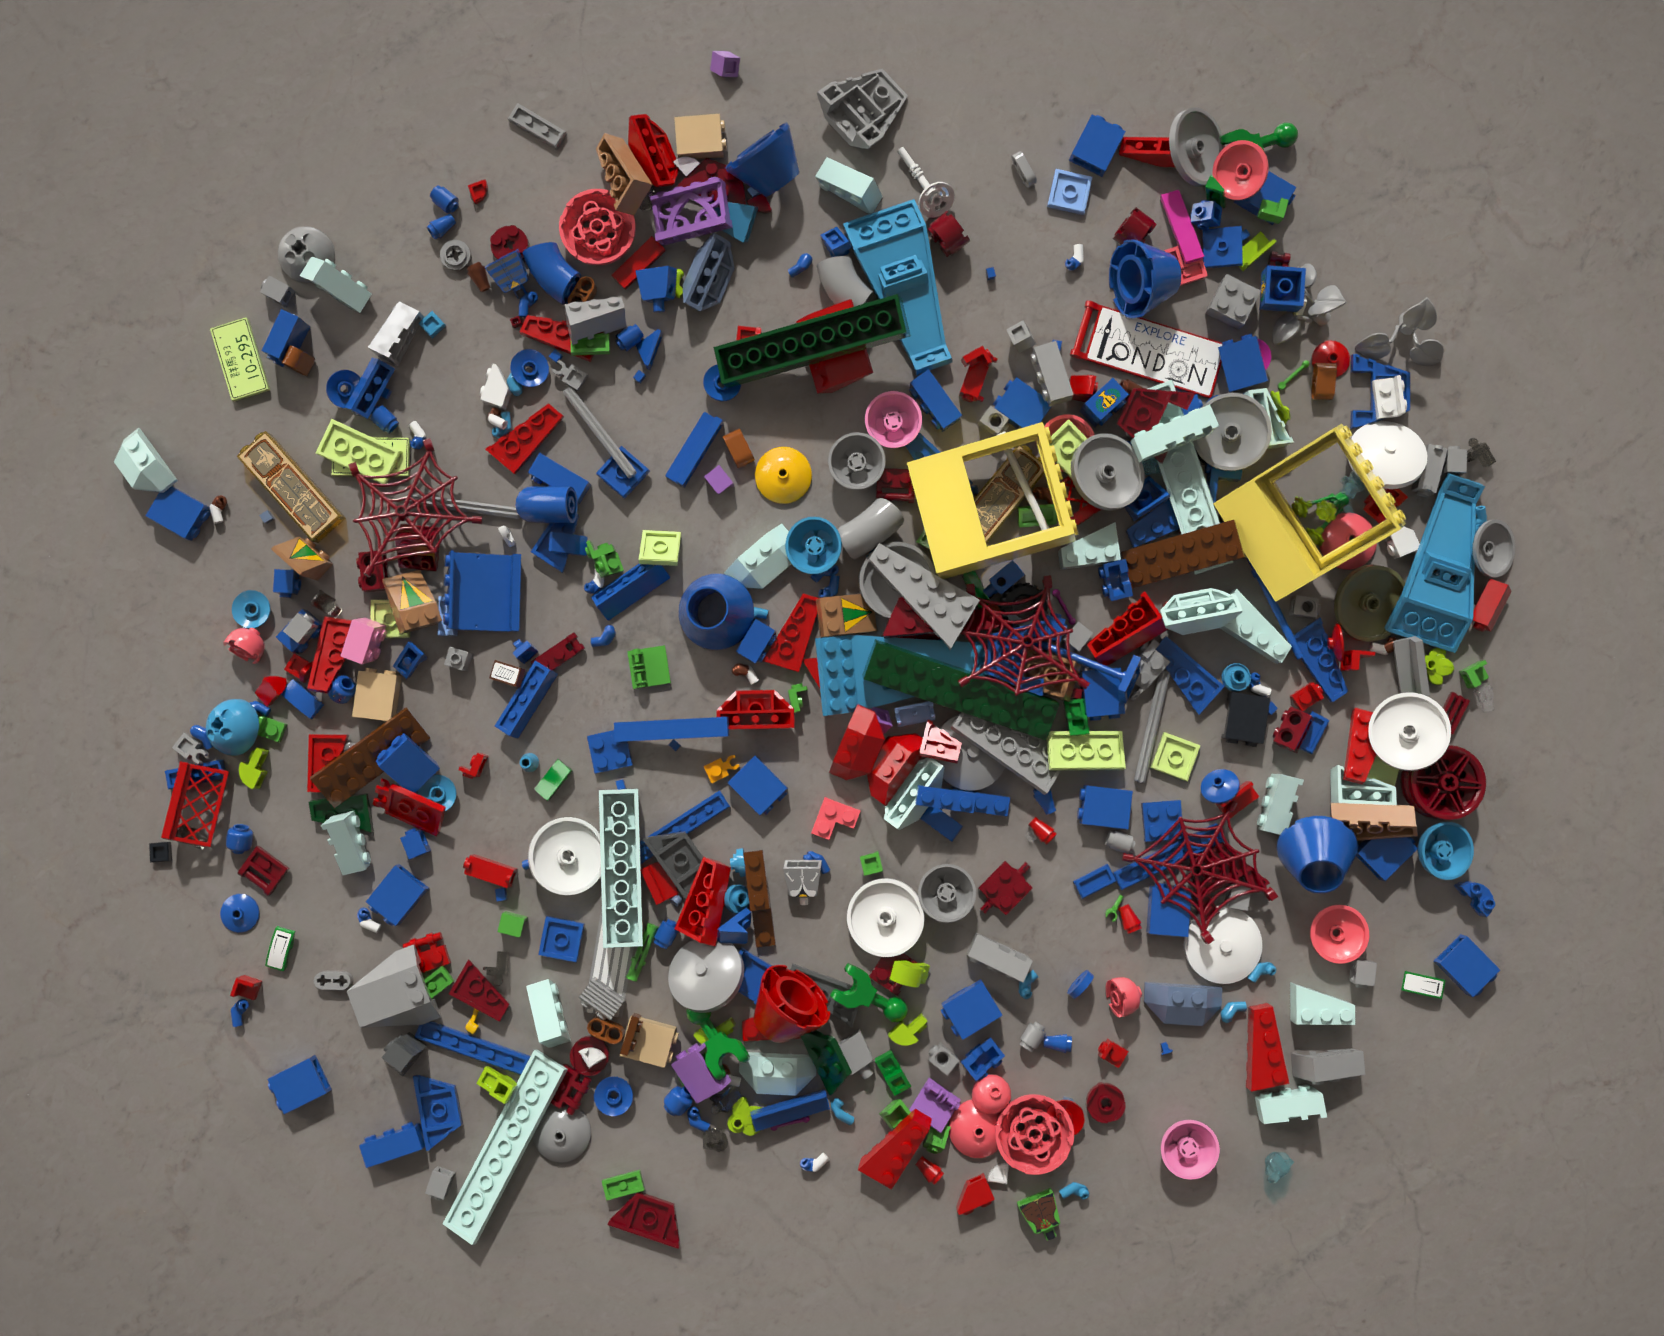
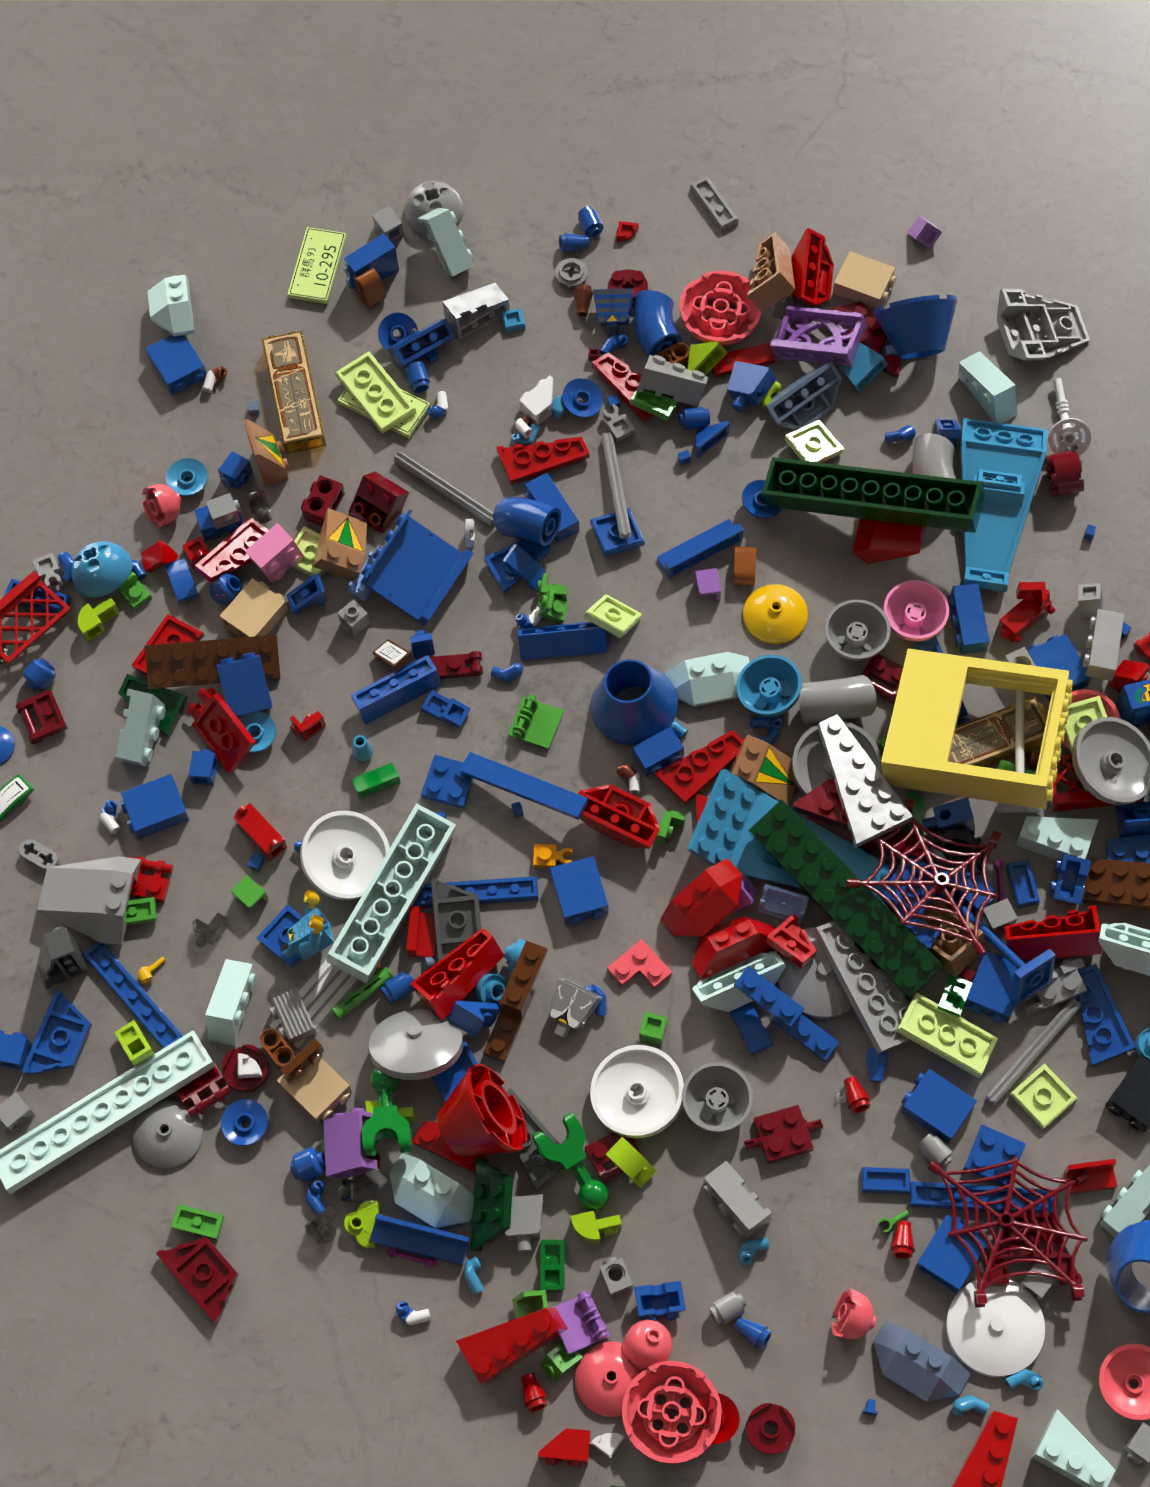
camera: 30 degrees right, 20 degrees down
(403, 508) = (386, 458): dark red animal -> none
(479, 993) = (173, 944): dark red wing -> none
(573, 693) = (446, 710): none -> blue slope
(579, 935) = (310, 933): none -> dark azure torso
(608, 280) = (705, 356): none -> lime slope
(686, 164) = (838, 297): white tile -> none
(736, 310) = (814, 443): none -> tile
(970, 1009) = (675, 1238): blue brick -> none
(1080, 984) = (811, 1277): blue piece -> none
(1081, 598) = (1022, 883): none -> blue tile
(1112, 1052) = (807, 1377): red bracket -> none
(1220, 792) = (1077, 1149): blue dish -> none

